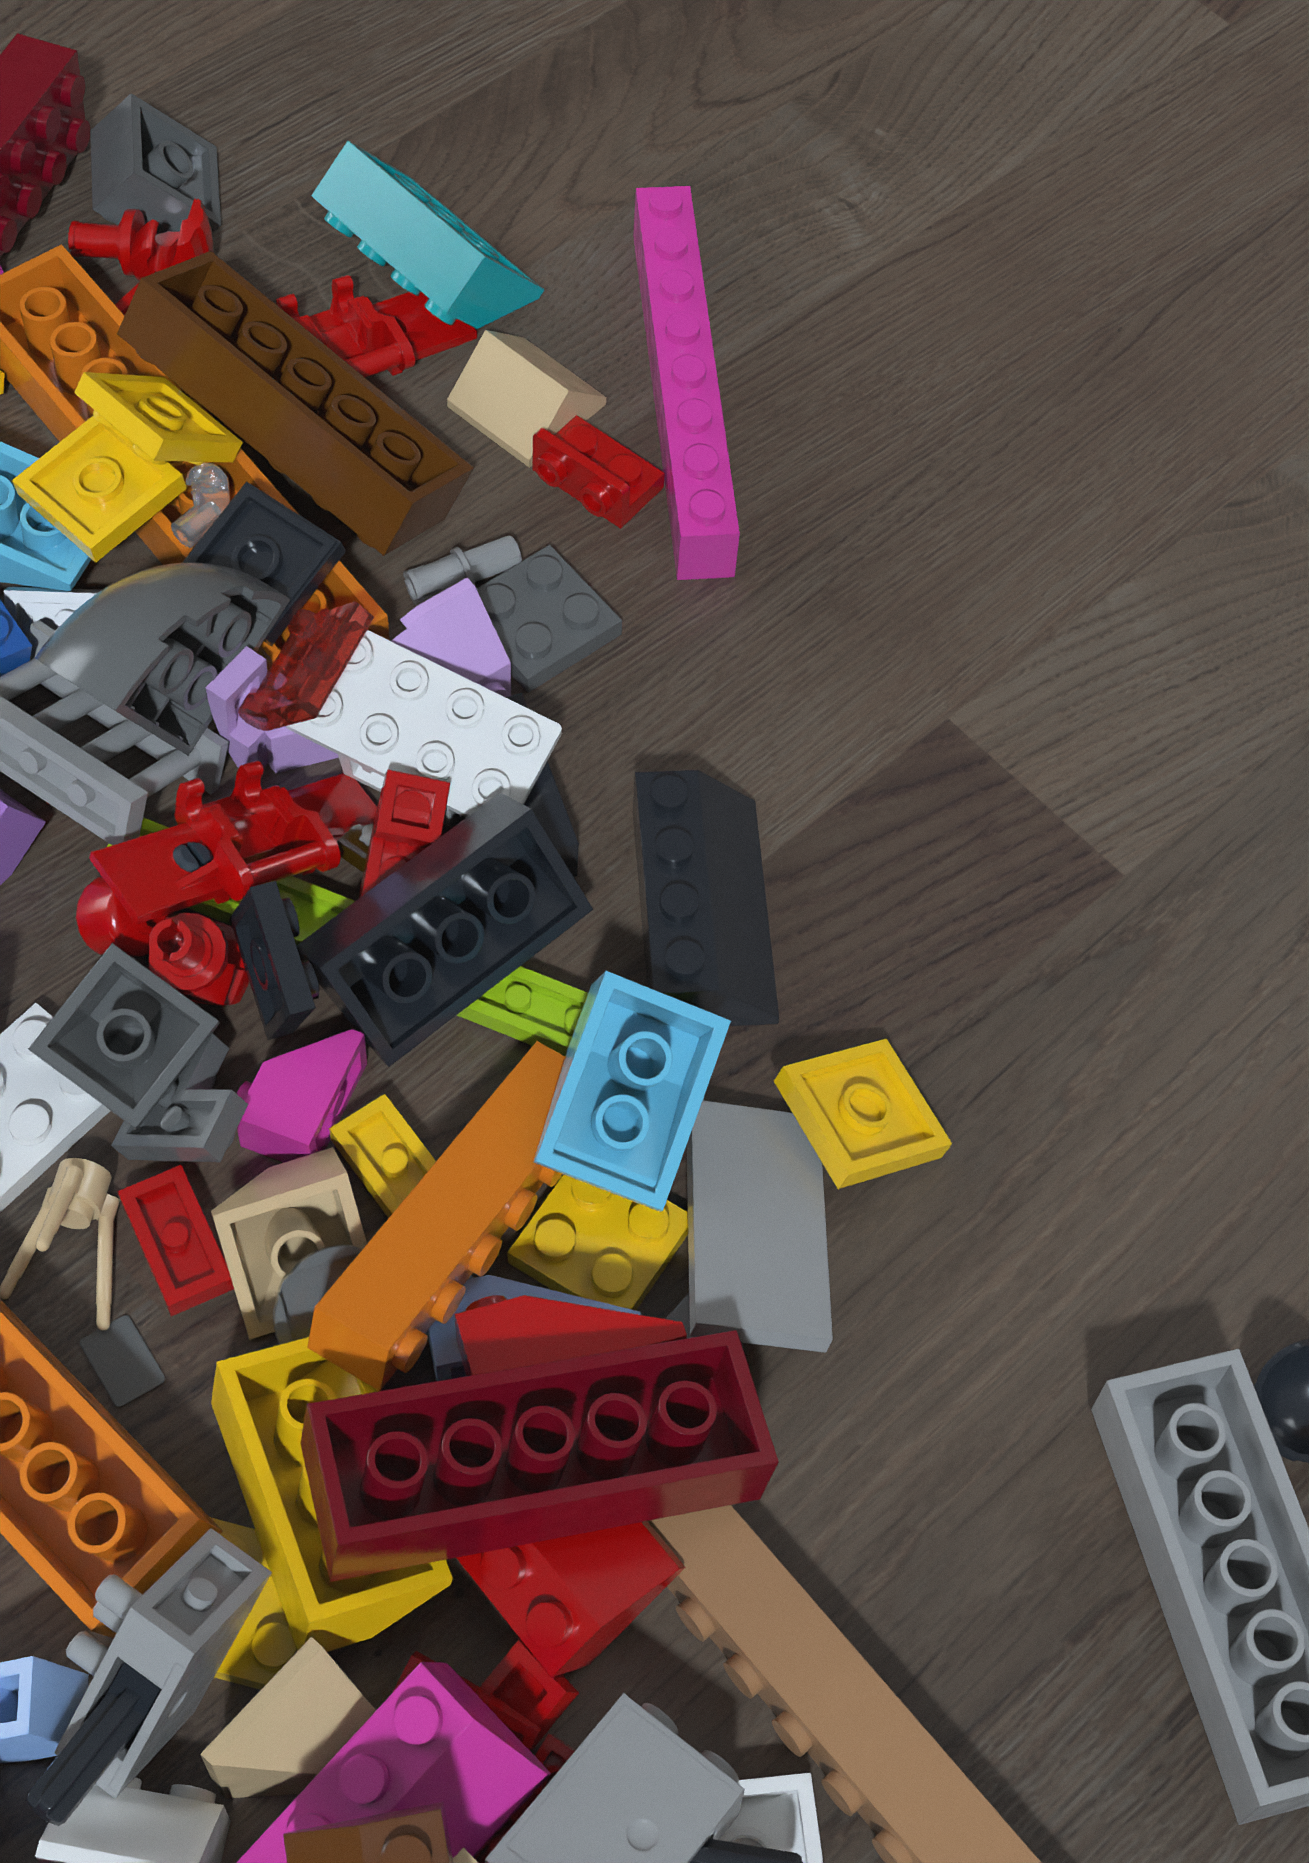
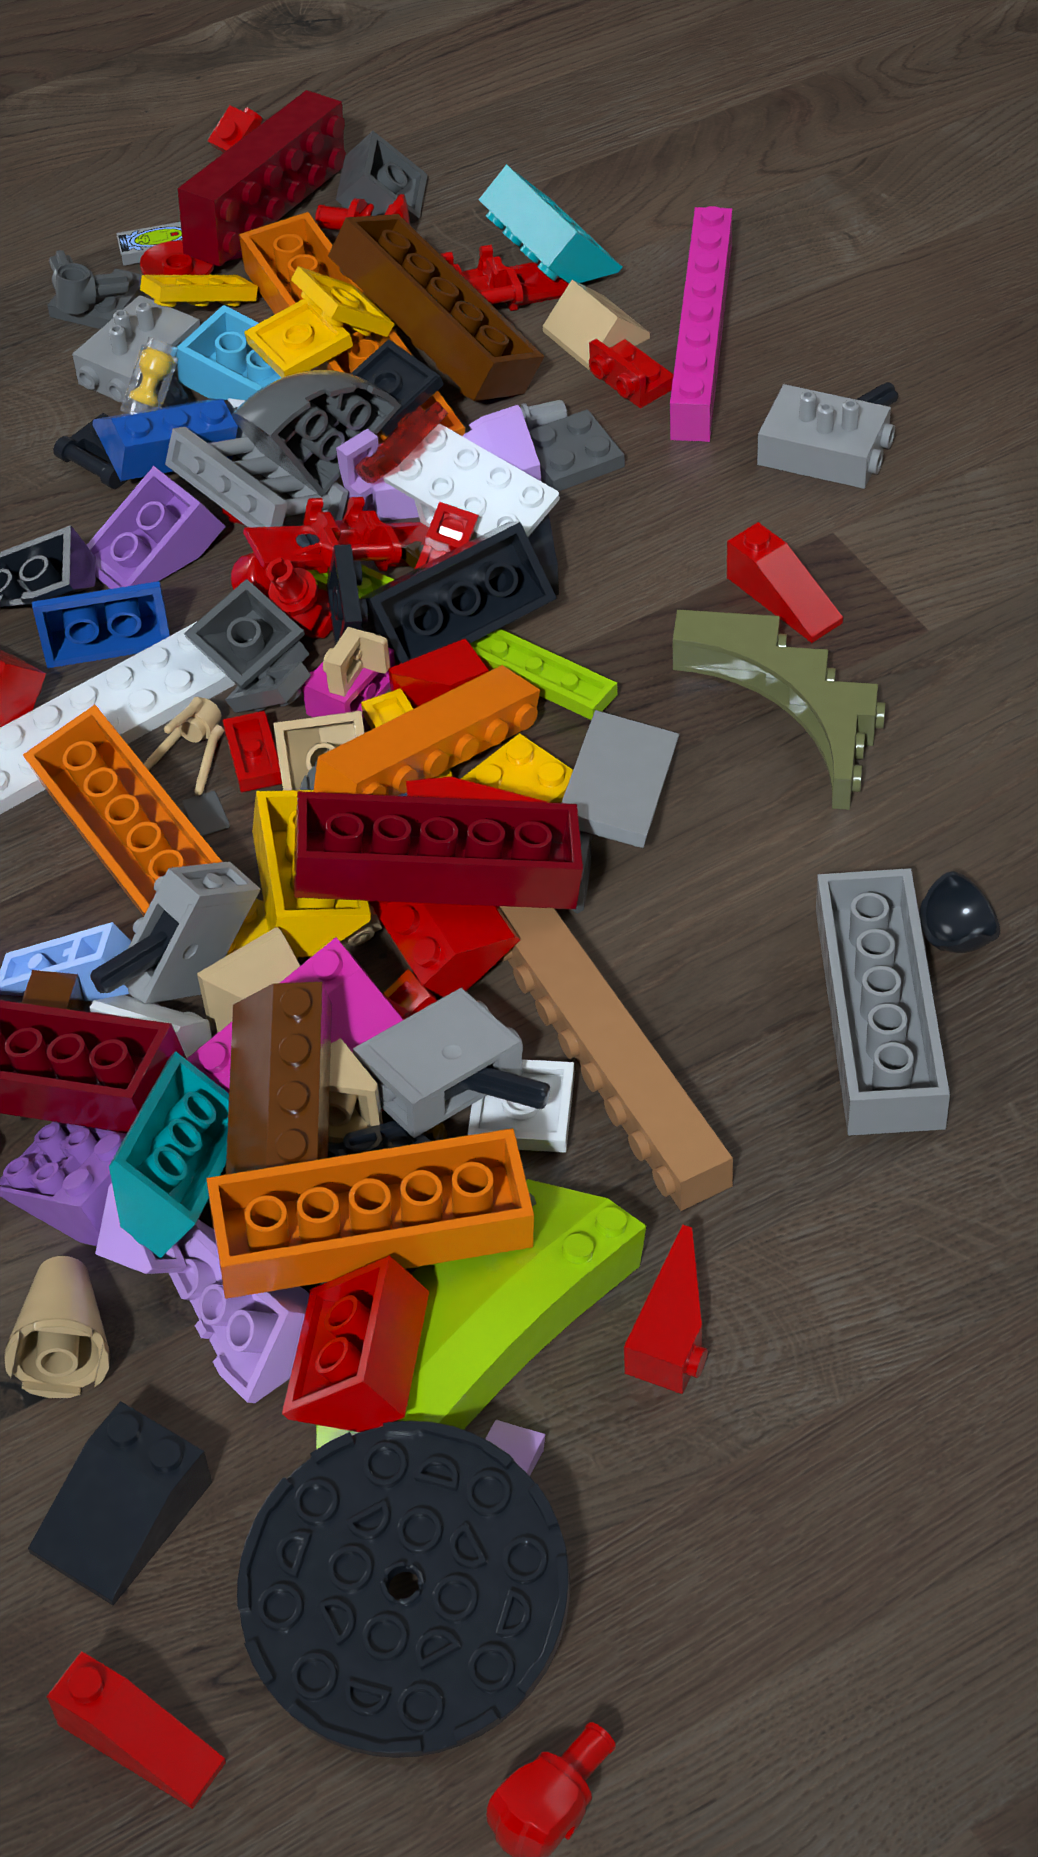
camera: 20 degrees right, 10 degrees down
(210, 498) = (365, 345): clear arm -> none
(312, 1055) = (352, 654): none -> tan bracket
(444, 1067) = (436, 672): none -> red slope
(630, 1090) = (552, 686): medium azure slope -> none
(703, 896) = (634, 609): black slope -> none
(862, 1113) = (706, 730): yellow plate -> none
(904, 826) = (779, 581): none -> red slope
(911, 555) = (828, 434): none -> light grey piece
(1039, 1054) = (756, 656): none -> olive arch

